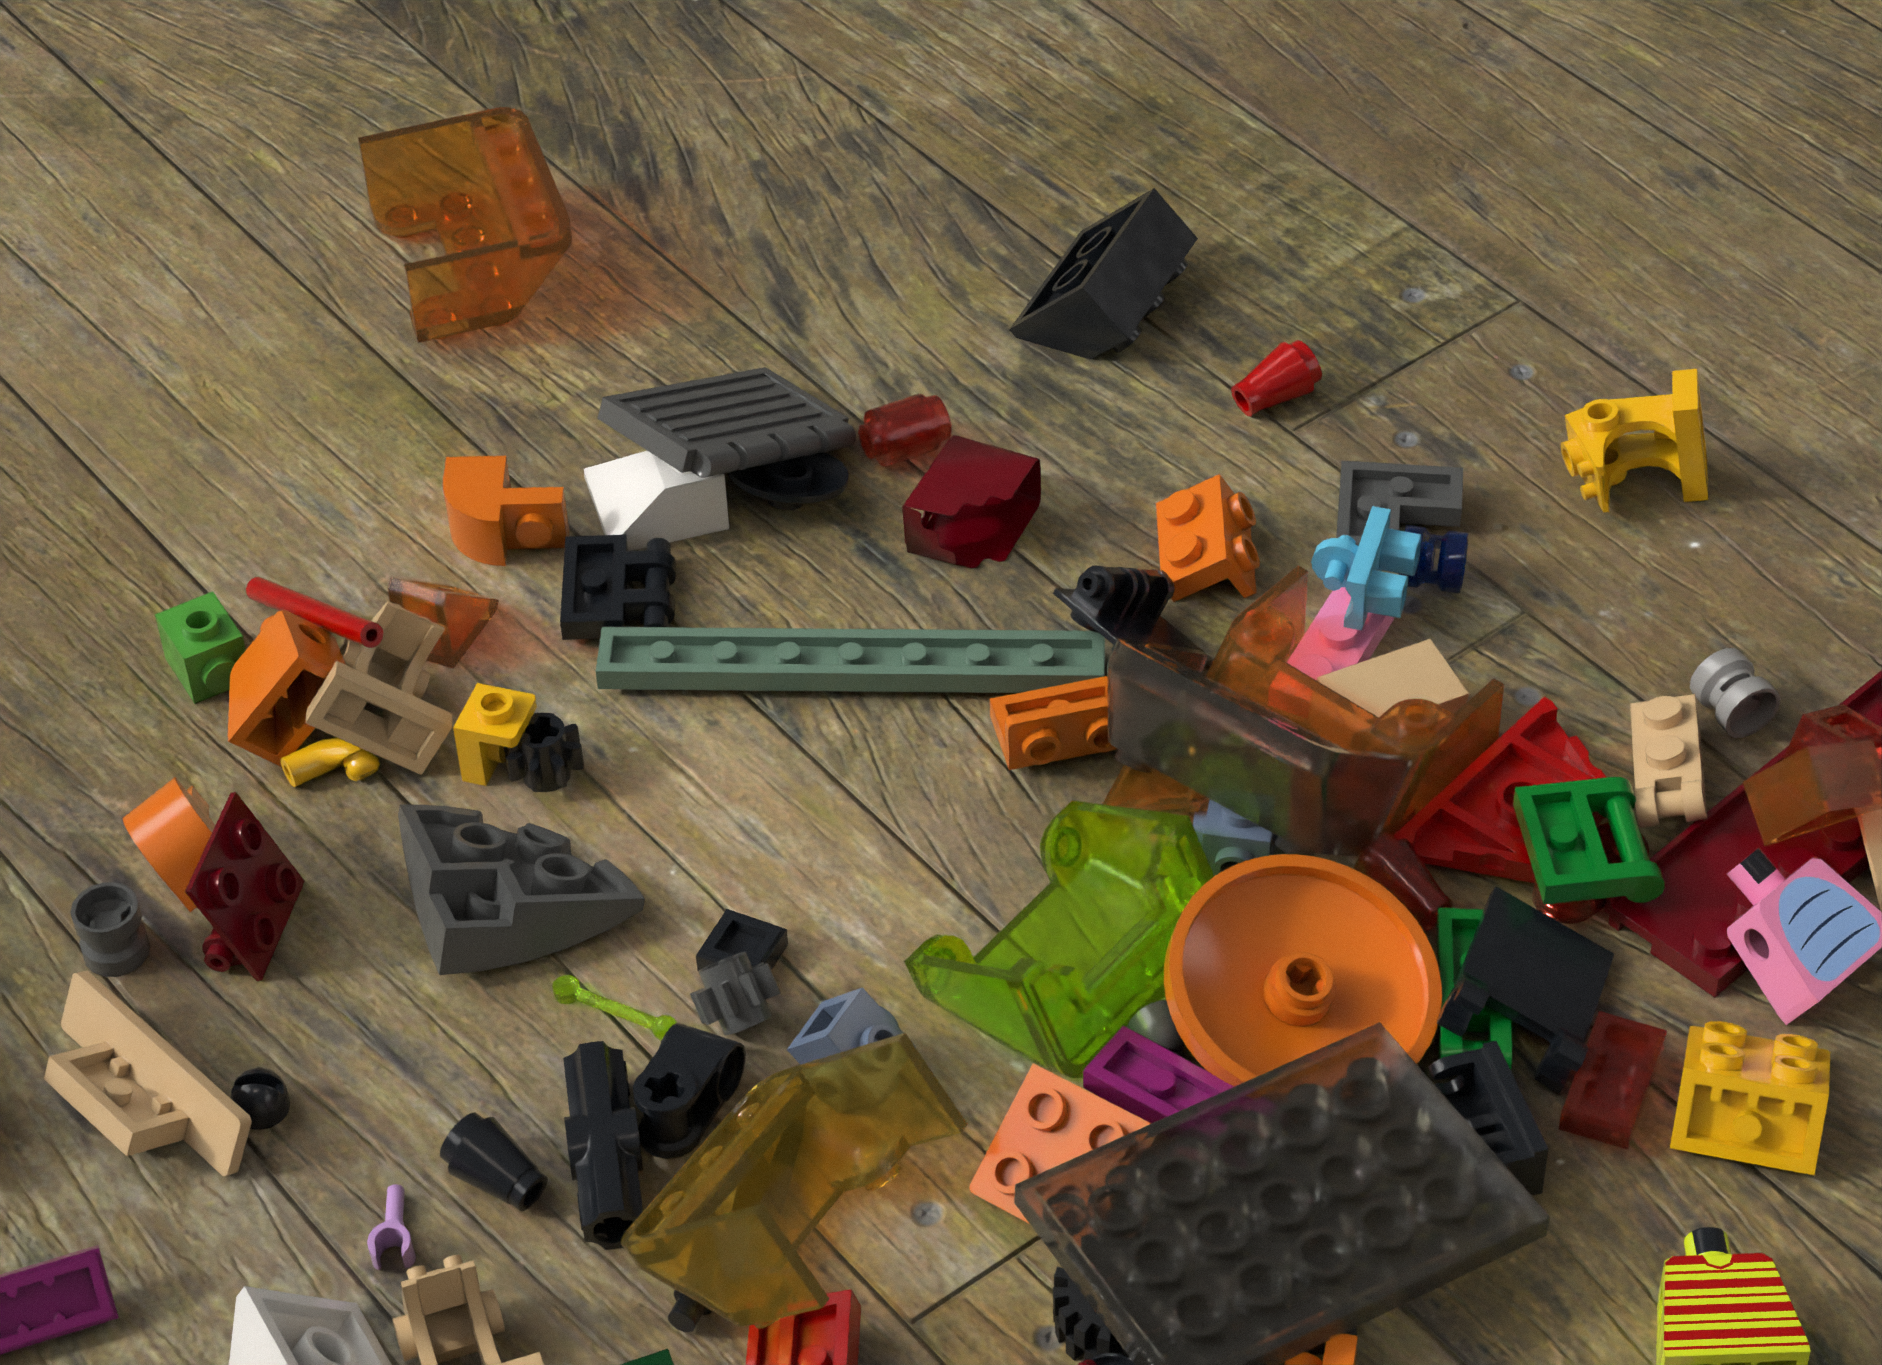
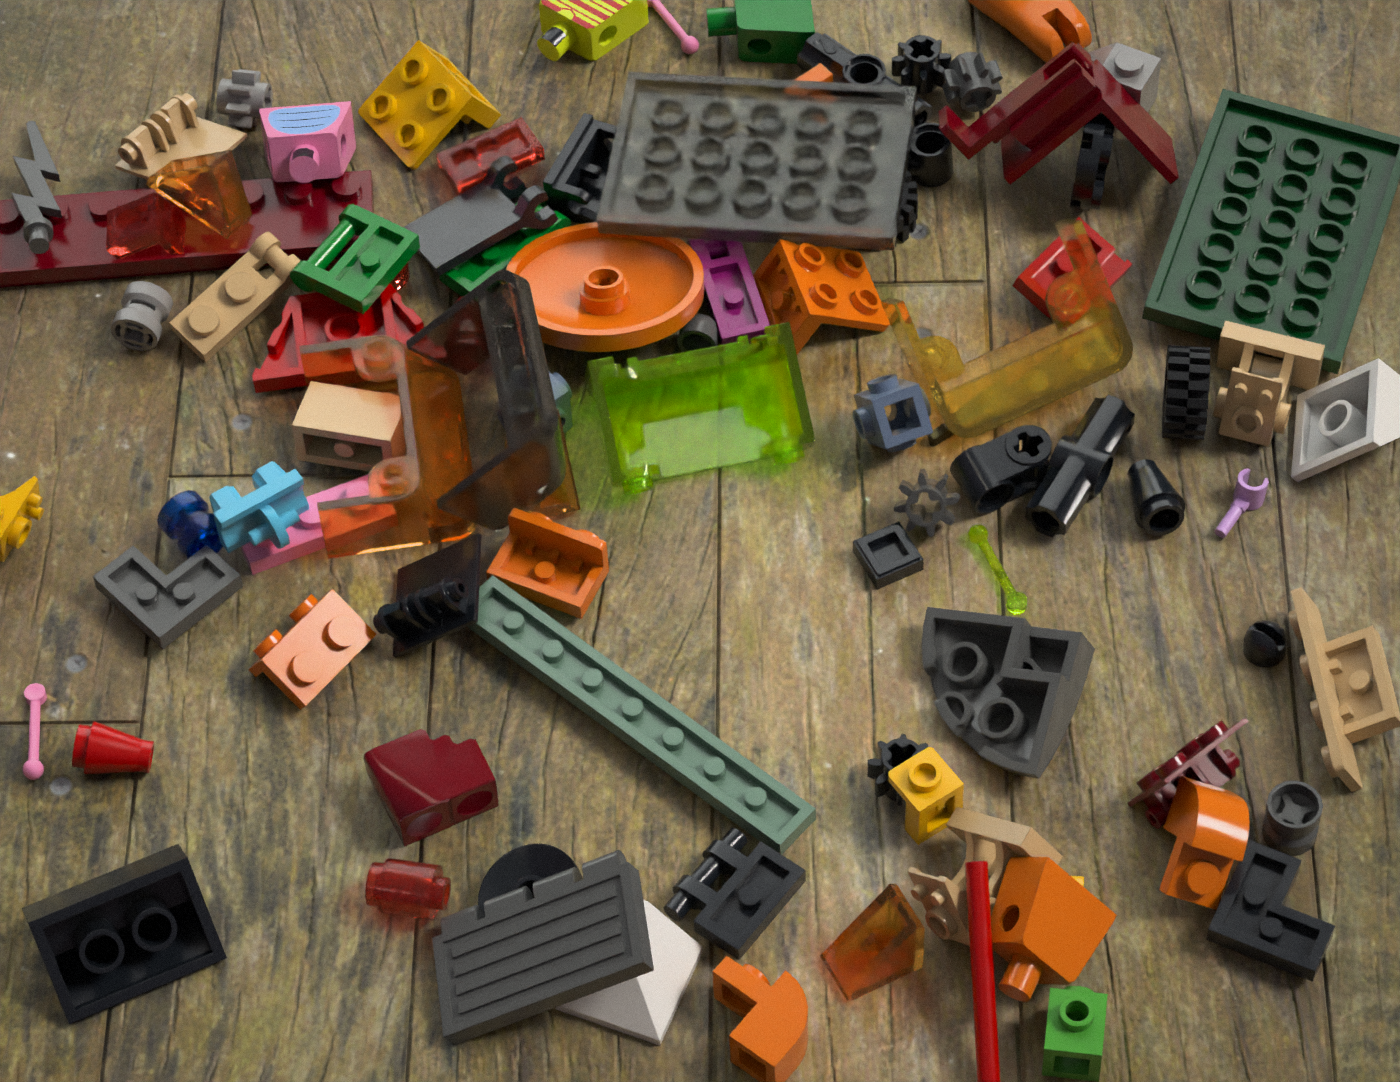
camera: 140 degrees left, 10 degrees up
(76, 831) = (1257, 922): none -> black plate
(533, 1265) = (1186, 392): none -> black tyre
(1403, 393) = (35, 697): none -> bright pink hinge

